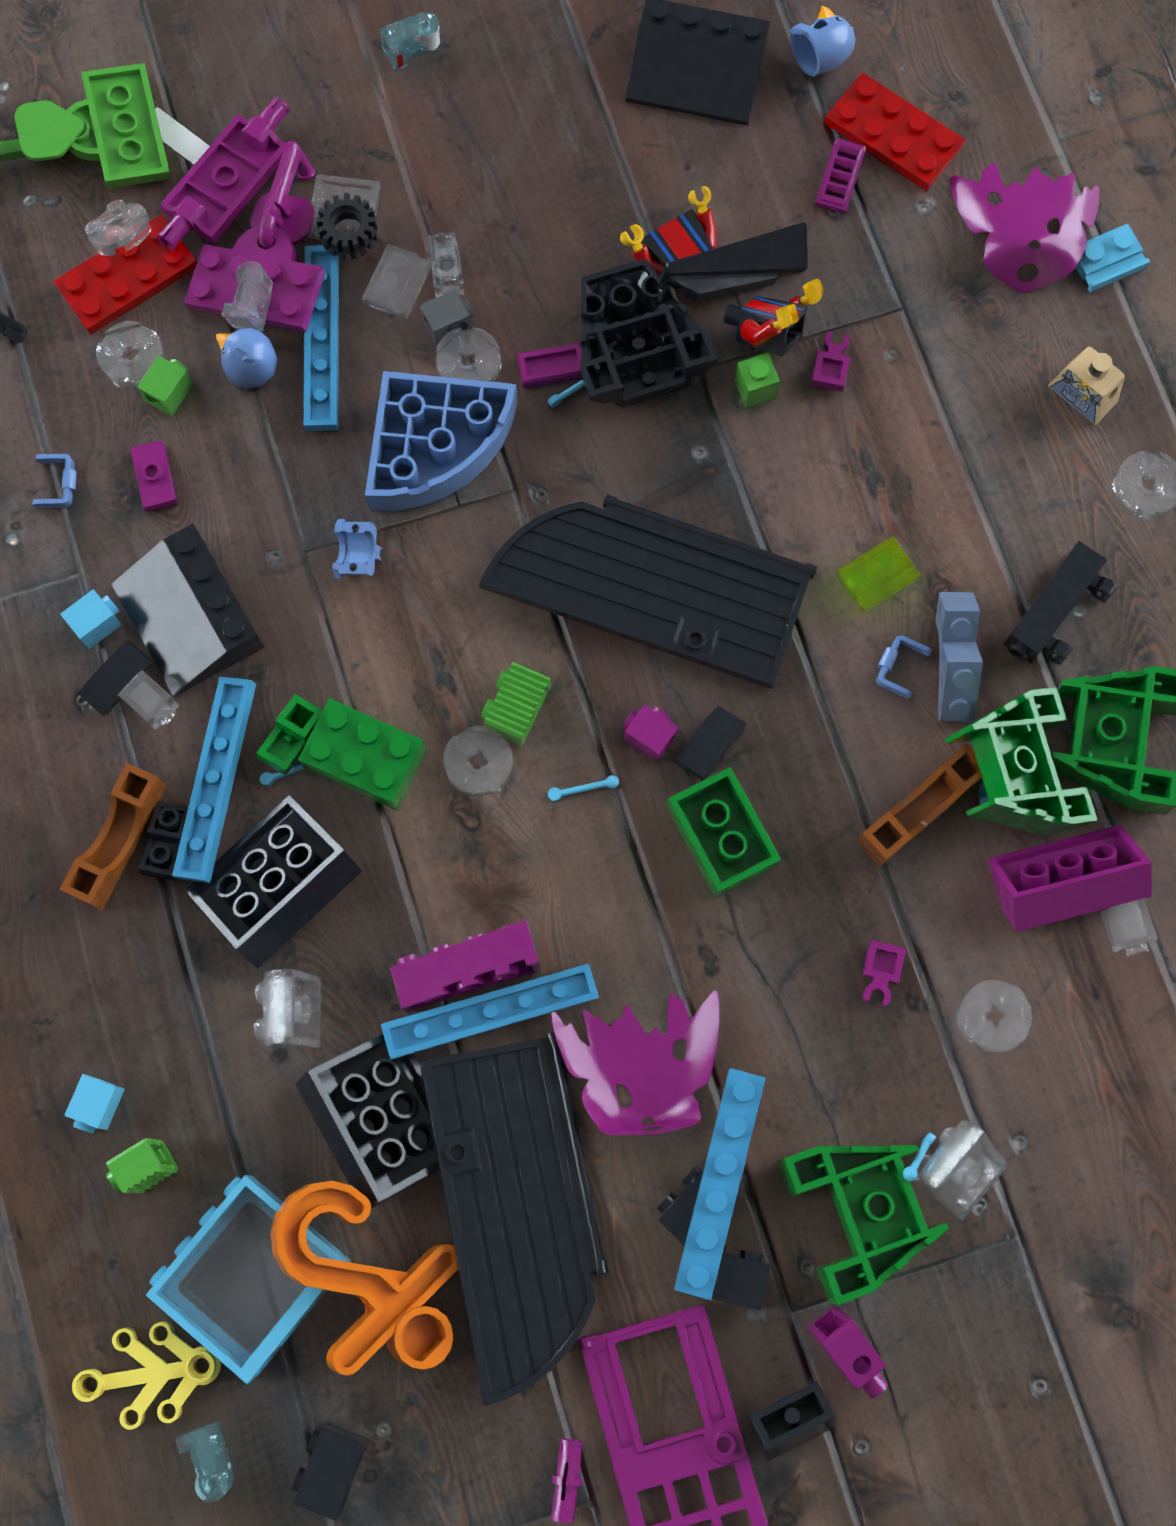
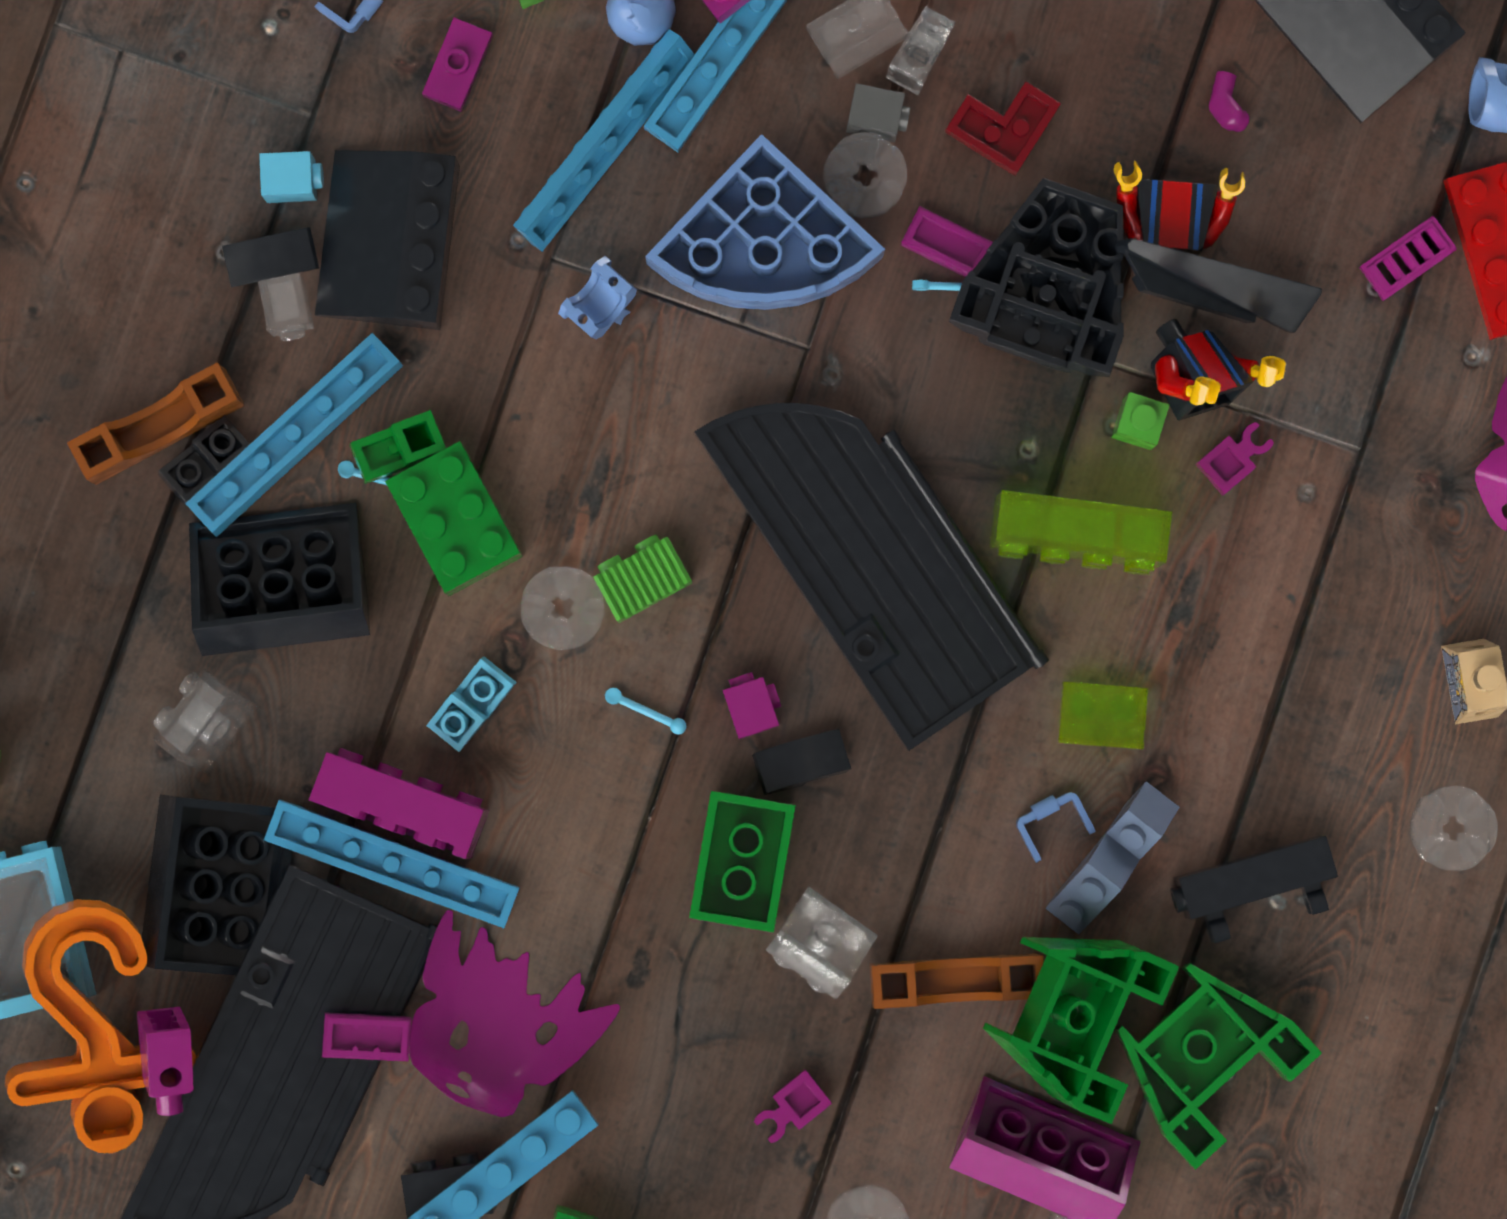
camera: 30 degrees right, 10 degrees up
(284, 454) = (604, 141): none -> dark azure plate
(422, 1248) = (166, 1057): none -> magenta torso
(464, 868) = (471, 704): none -> medium azure slope
(536, 279) = (1005, 138): none -> dark red plate
(561, 1141) = (366, 1037): none -> magenta plate
(657, 168) = (1223, 105): none -> magenta arm
(773, 468) = (1080, 530): none -> clear neon green piece
(817, 850) = (821, 943): none -> clear brick

